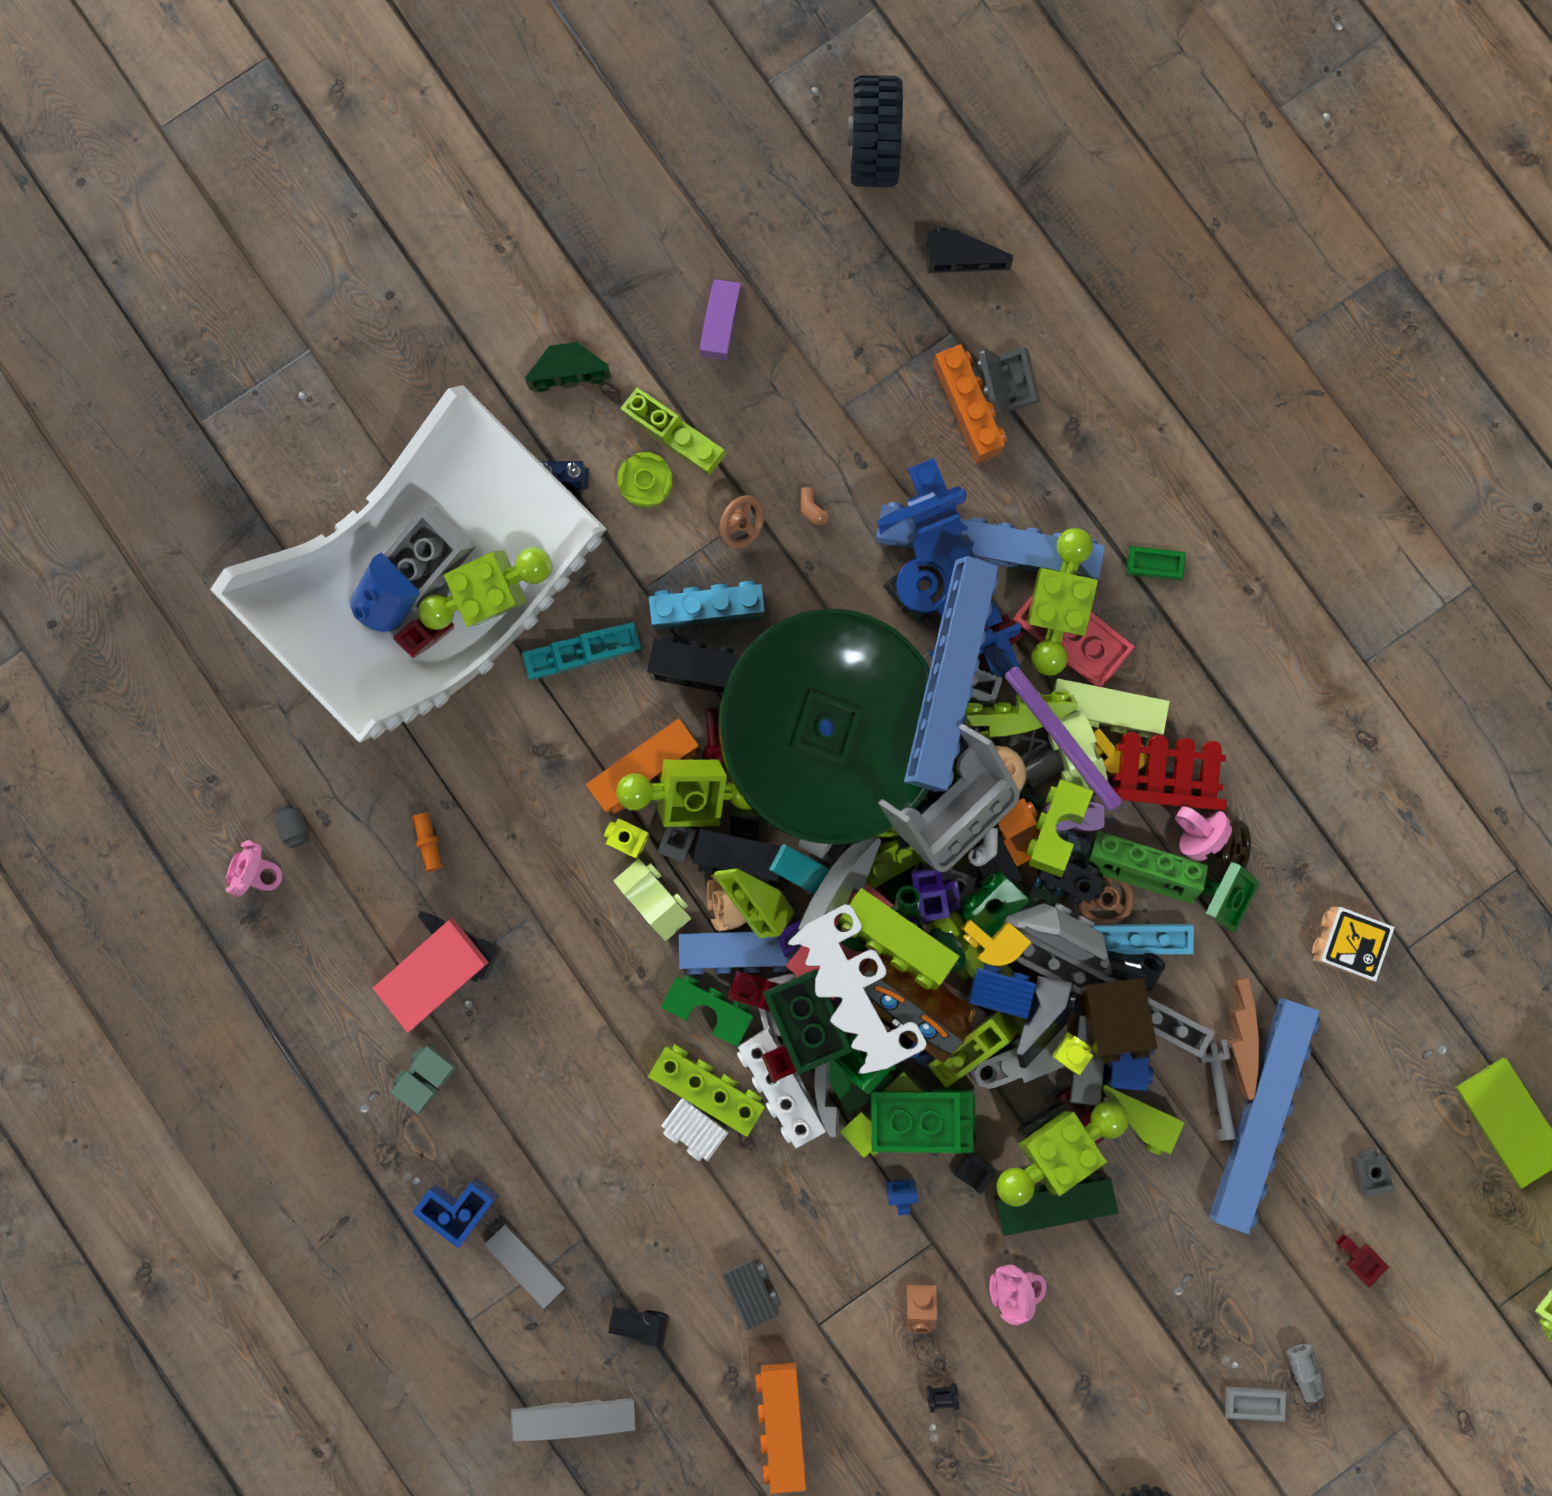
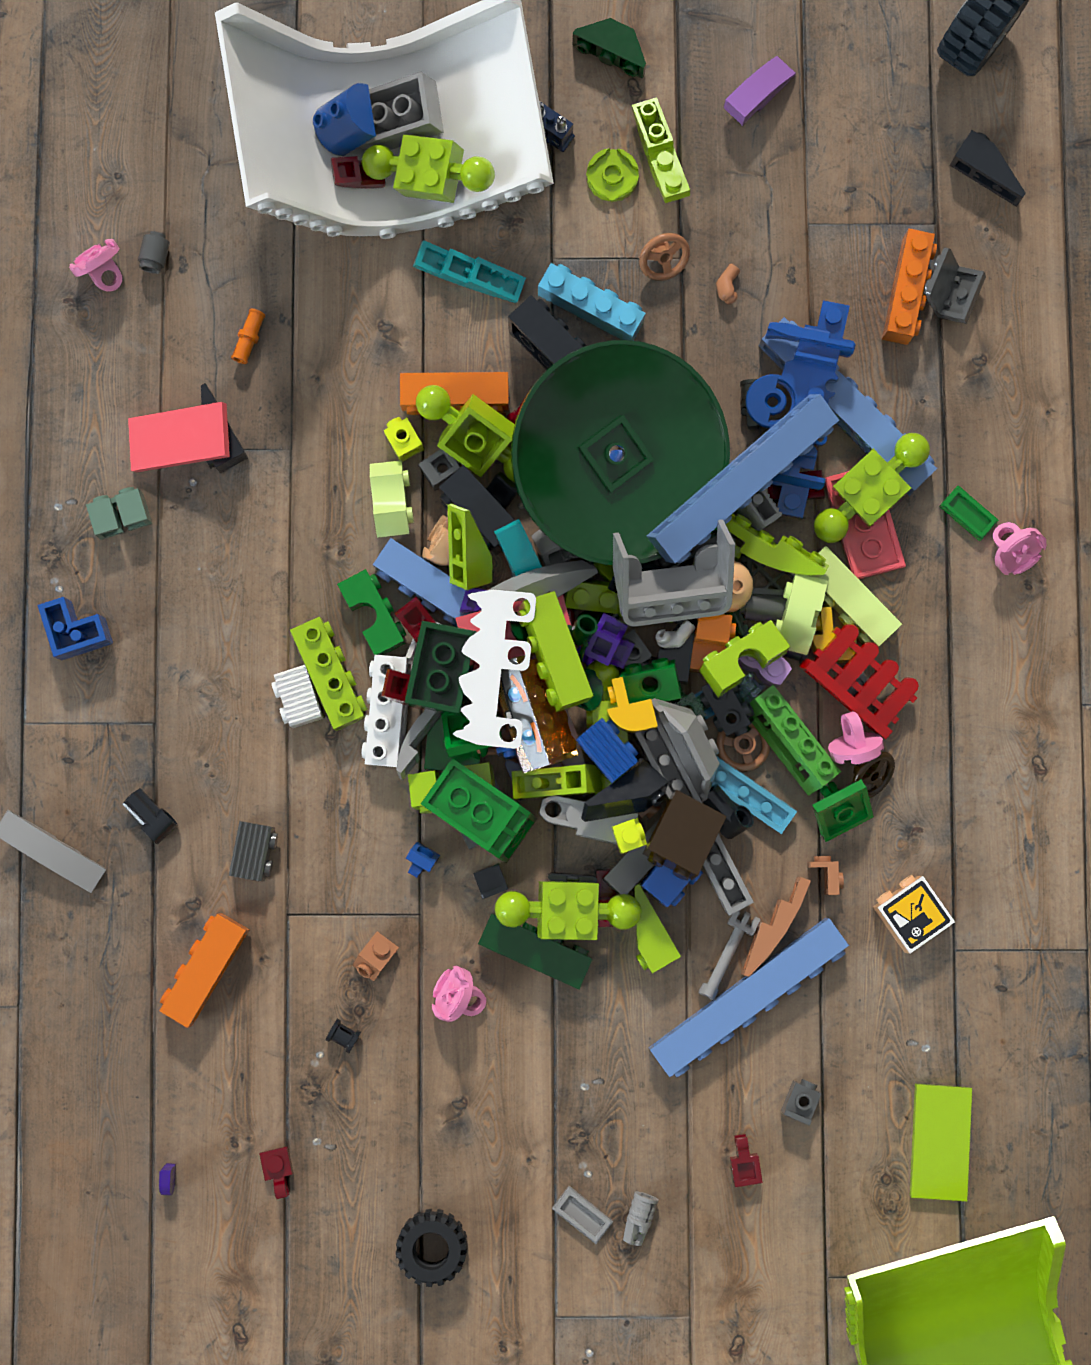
camera: 30 degrees right, 0 degrees up
(524, 1265) = (95, 710): light grey tile -> none
(1063, 738) = (795, 589): medium lavender axle -> none
(1223, 566) = (1019, 550): none -> bright pink tile
(1263, 961) = (832, 877): none -> nougat bracket

